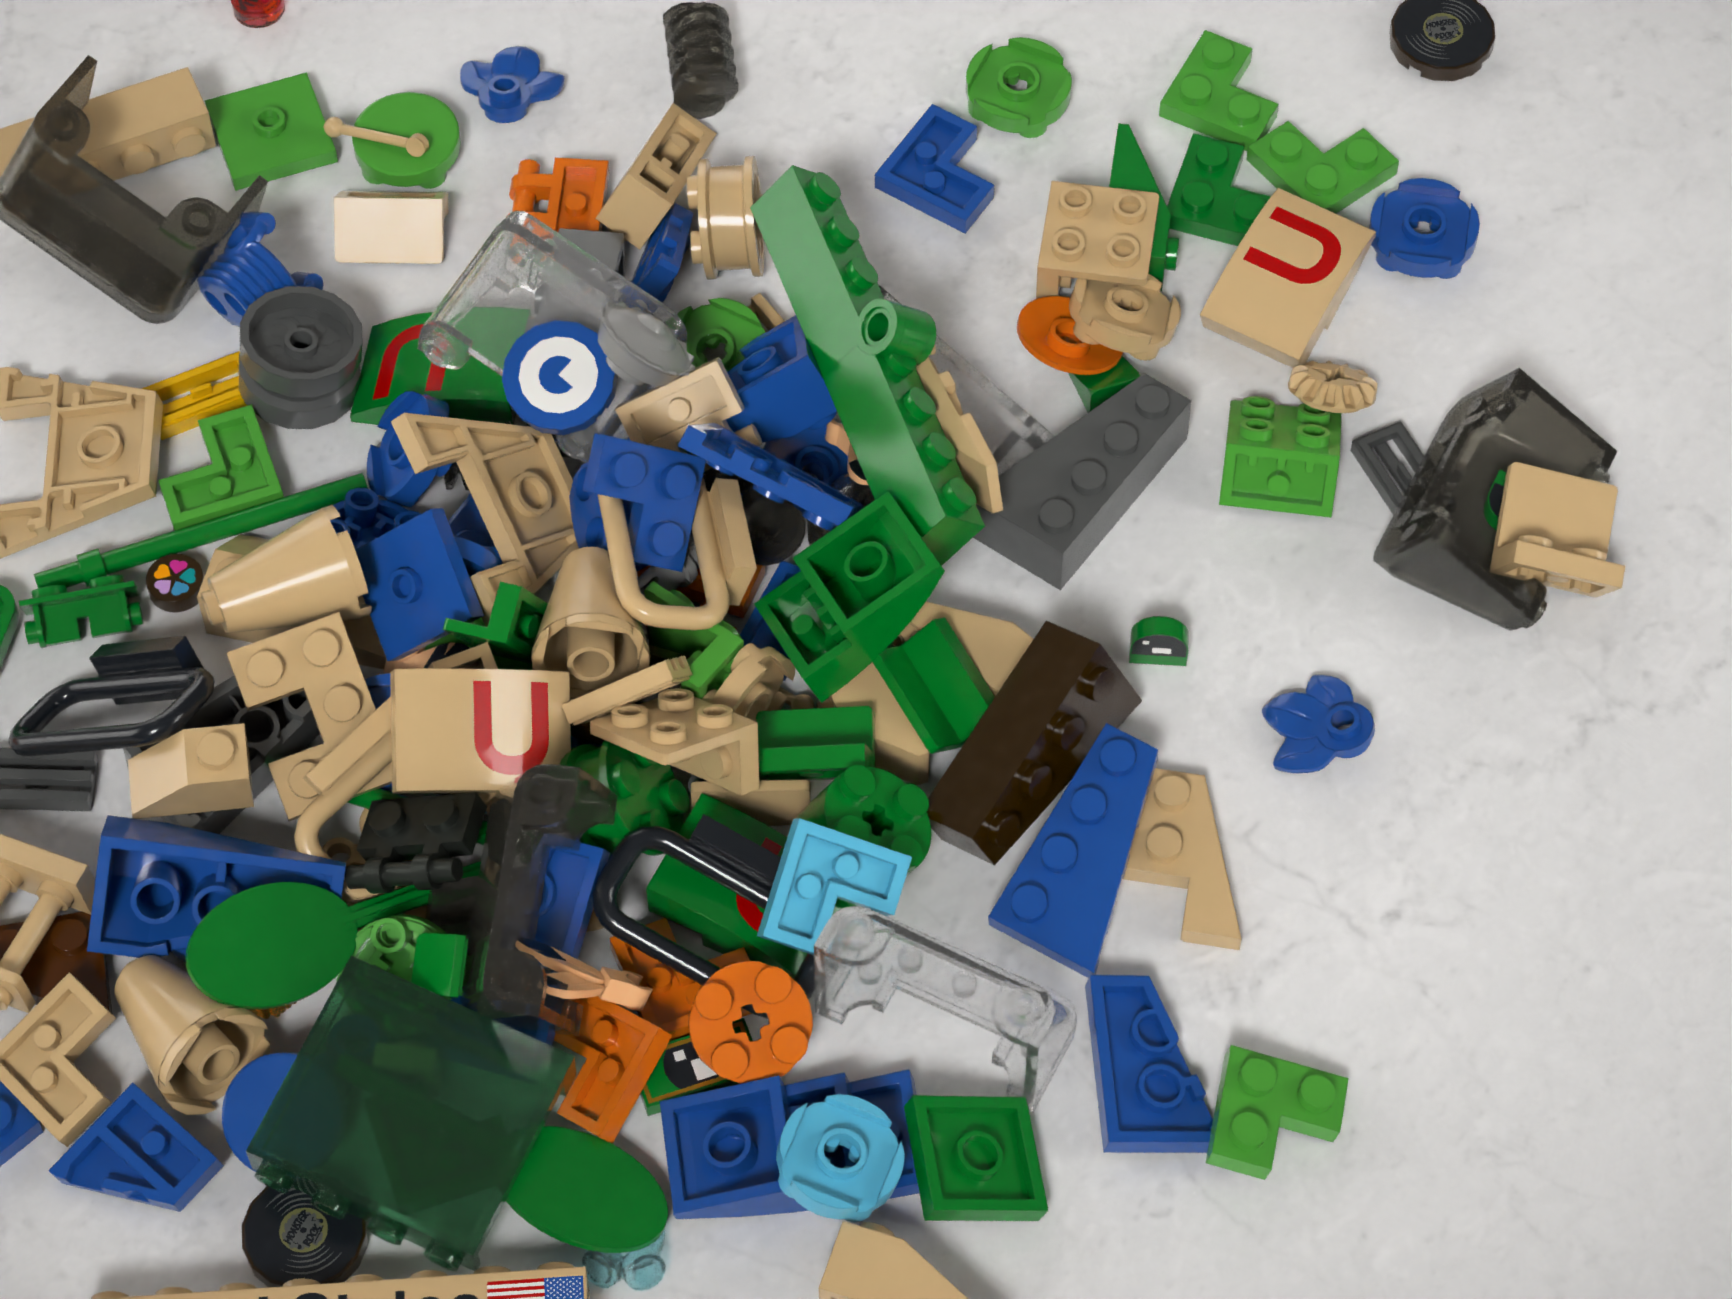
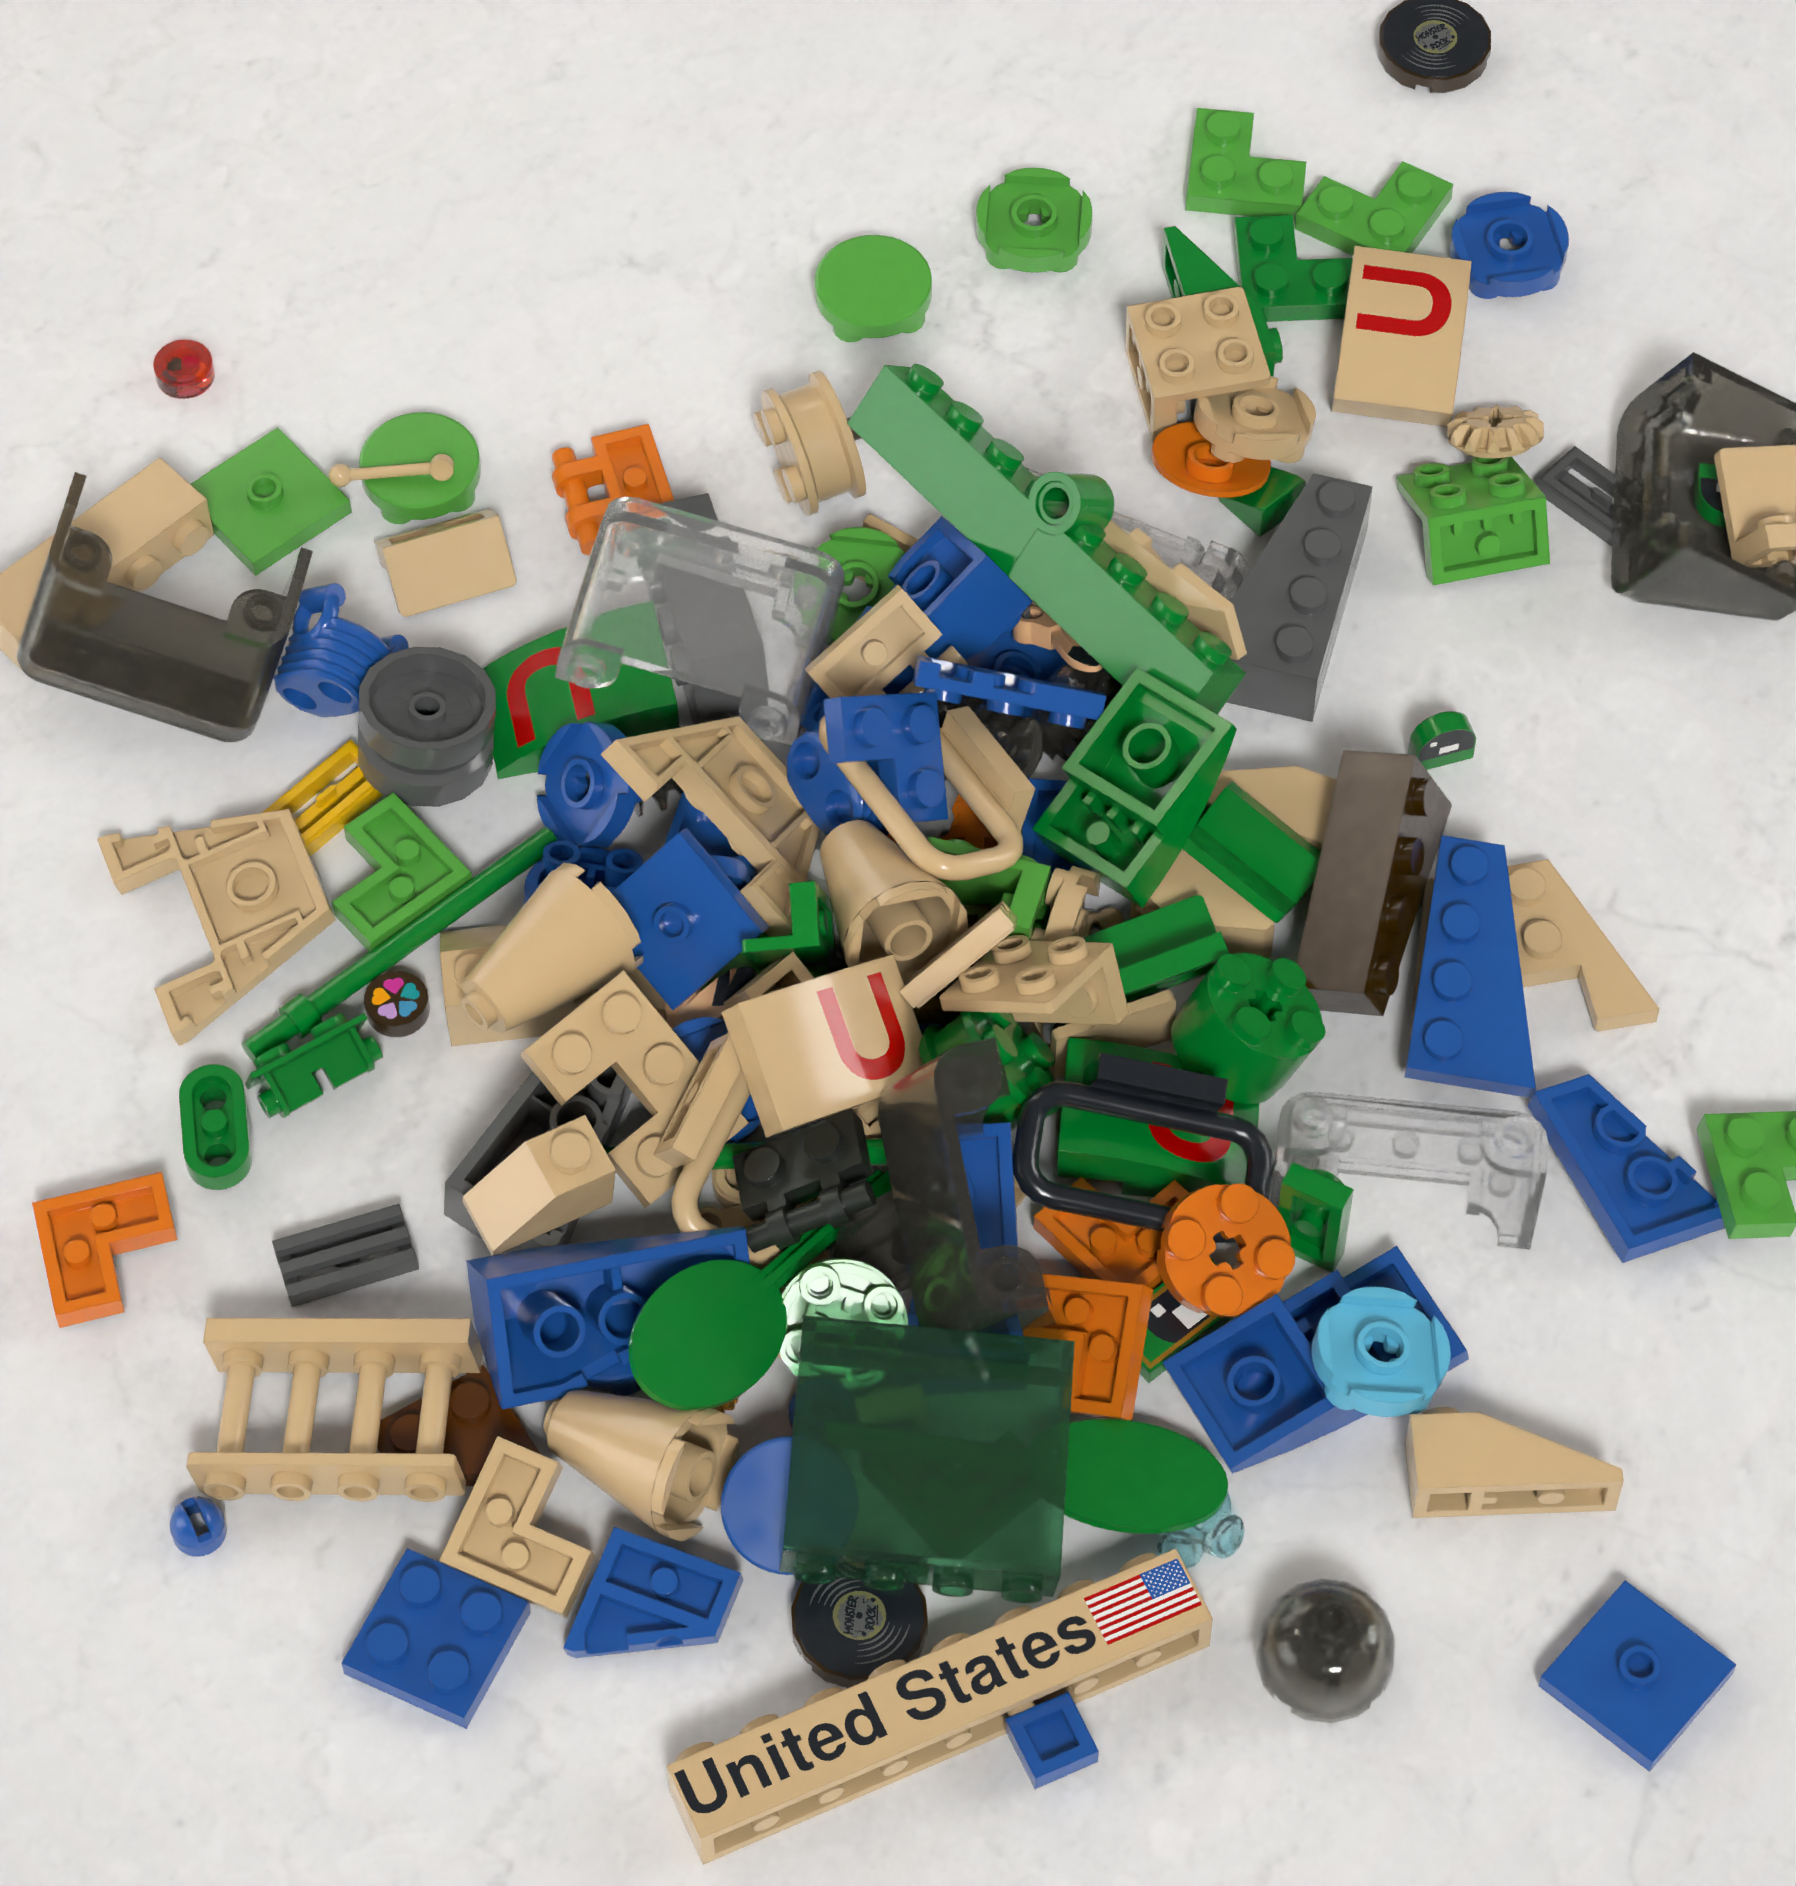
camera: 20 degrees left, 0 degrees up
(128, 675) = (405, 1112): black bar -> none
(440, 963) = (895, 1292): green slope -> none
(509, 83) = (499, 375): blue plate -> none
(558, 377) = (737, 657): blue tile -> none
(583, 981) = (1064, 1259): light nougat piece -> none
(641, 346) = (820, 598): light grey piece -> none
(656, 176) = (708, 426): tan slope -> none
(664, 253) = (758, 495): blue wing -> none
(700, 57) = (693, 288): clear smoke piece -> none
(817, 871) = (1241, 1073): medium azure plate -> none
(841, 1018) = (1316, 1214): none -> green plate
(854, 102) = (873, 288): none -> bright green tile
(927, 175) = (981, 340): blue plate -> none
(975, 1158) = (1505, 1310): green plate -> none
(1313, 722) = (1628, 776): blue plate -> none

